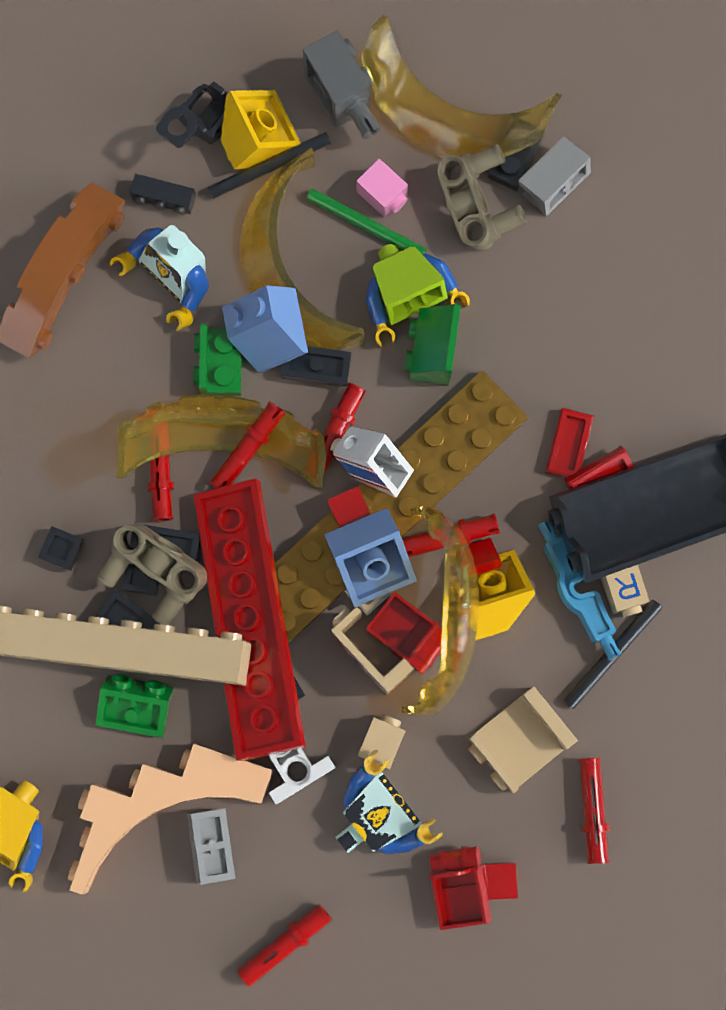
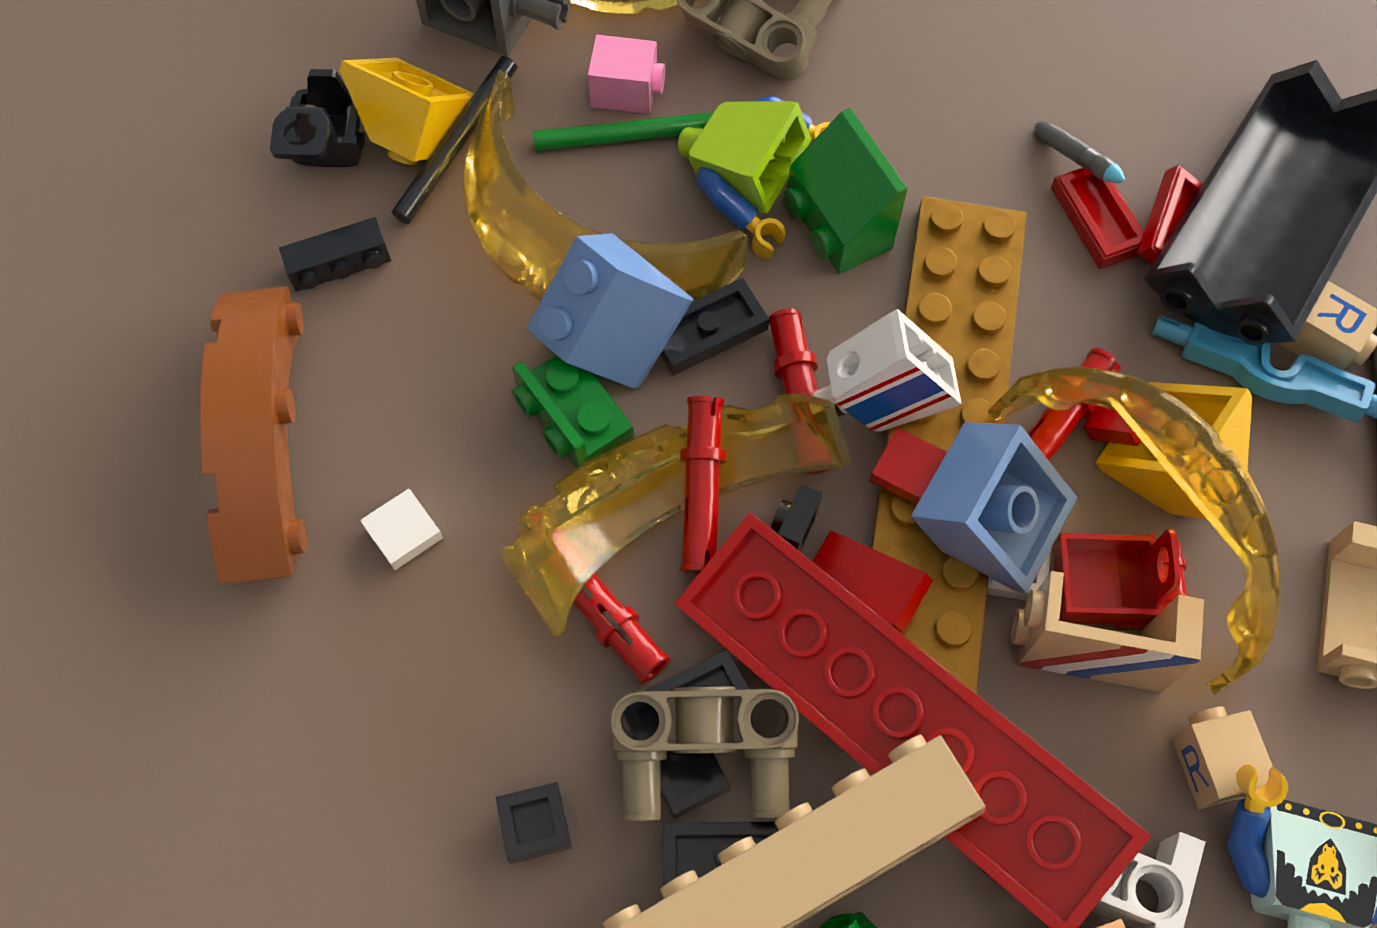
camera: 35 degrees left, 15 degrees down
(97, 367) = (401, 529): none -> white tile
(174, 264) = (417, 318): torso -> none
(278, 496) = (796, 518): none -> black plate
(288, 548) = (874, 578): none -> red tile
(583, 422) = (1101, 166): none -> dark grey piece

